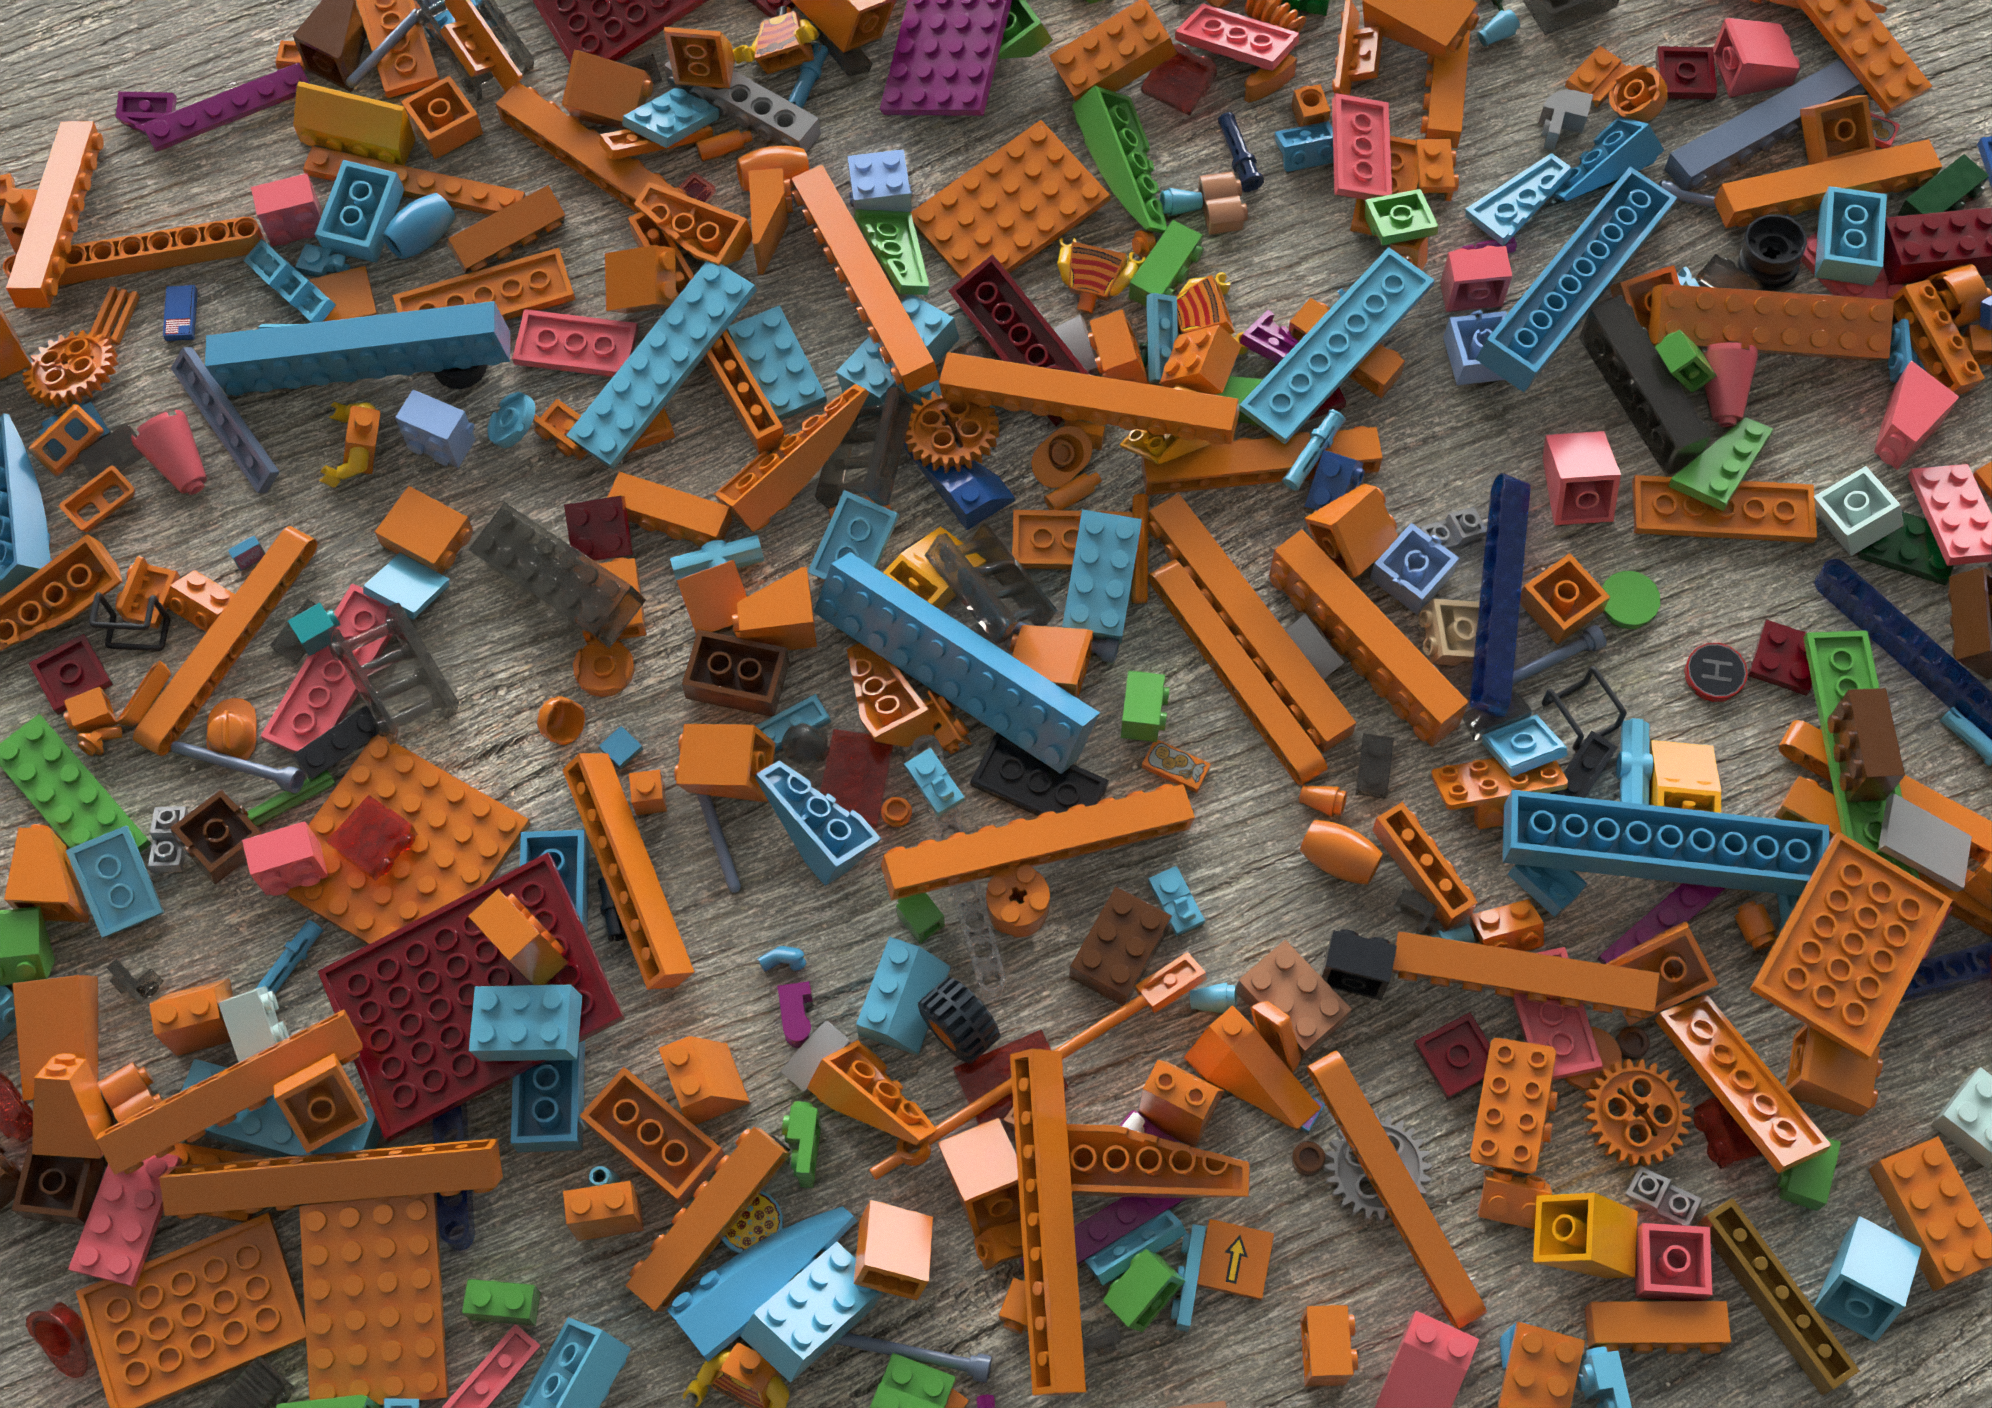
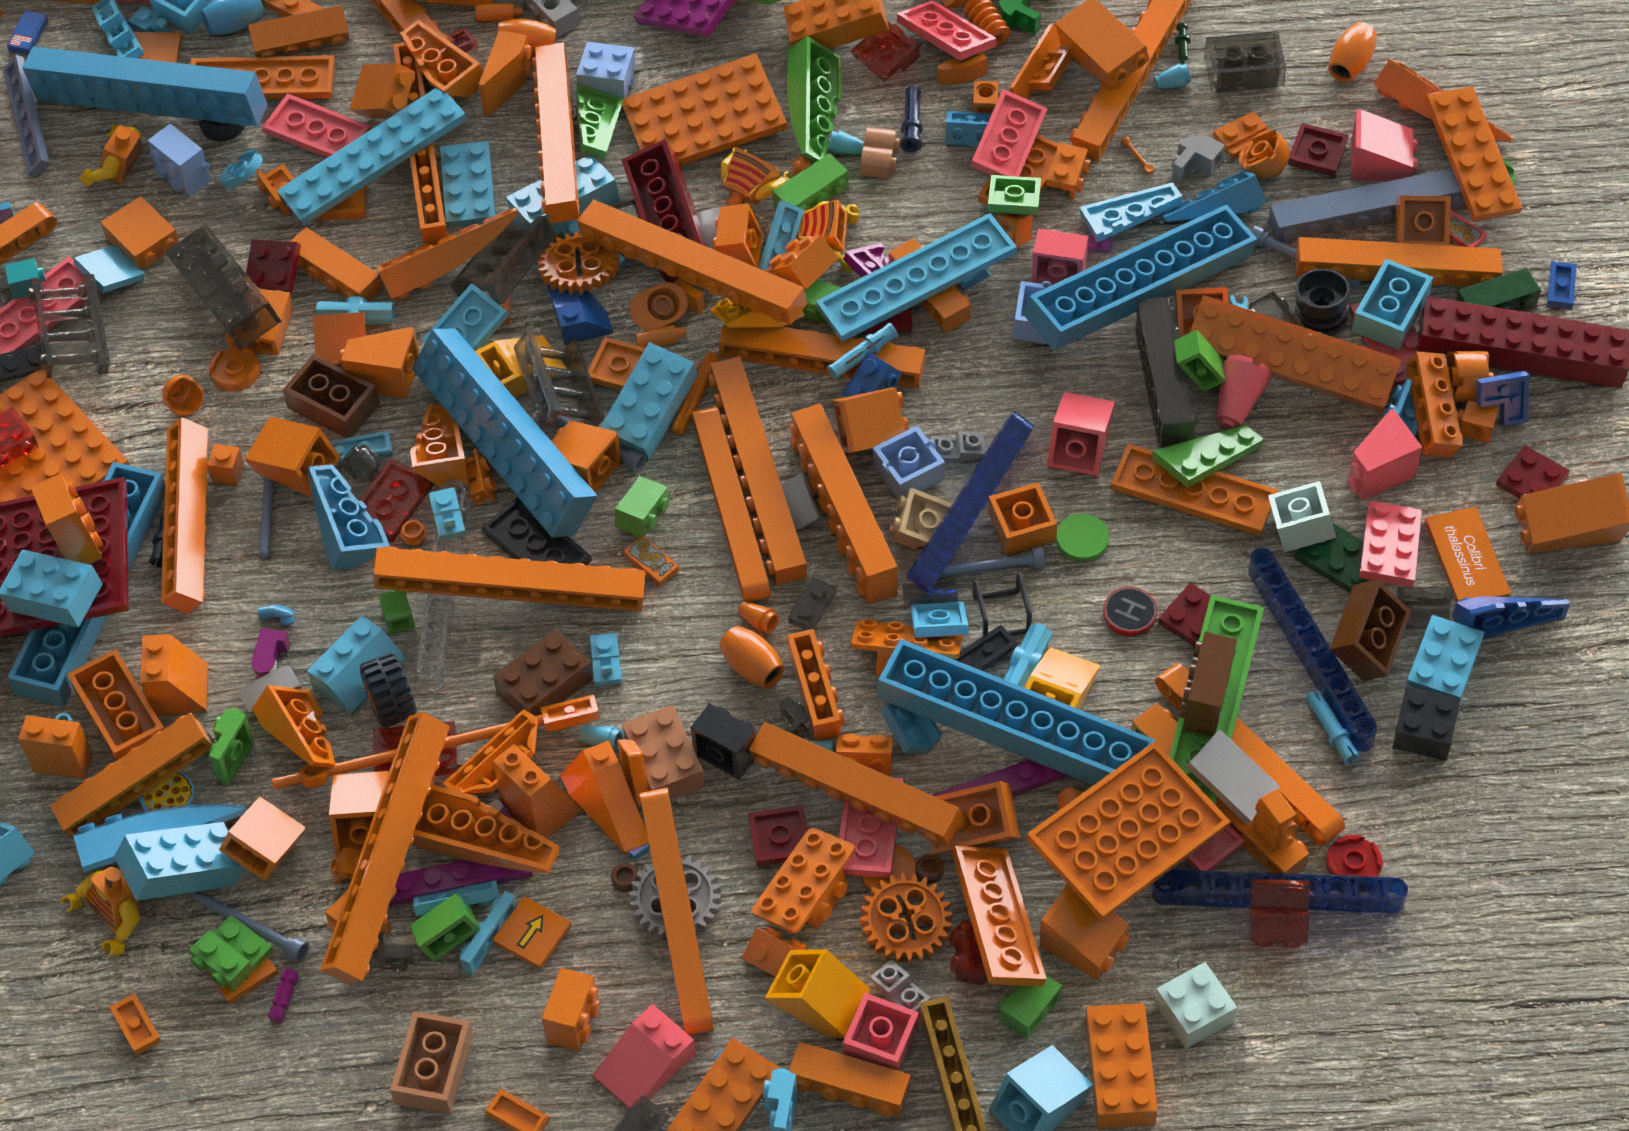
camera: 20 degrees right, 10 degrees down
(621, 747) = (221, 429): dark azure tile -> none
(1021, 884) = (477, 621): orange brick -> none
(1119, 1066) = (478, 773): none -> orange wedge
(1514, 142) = (1148, 168): none -> orange hinge

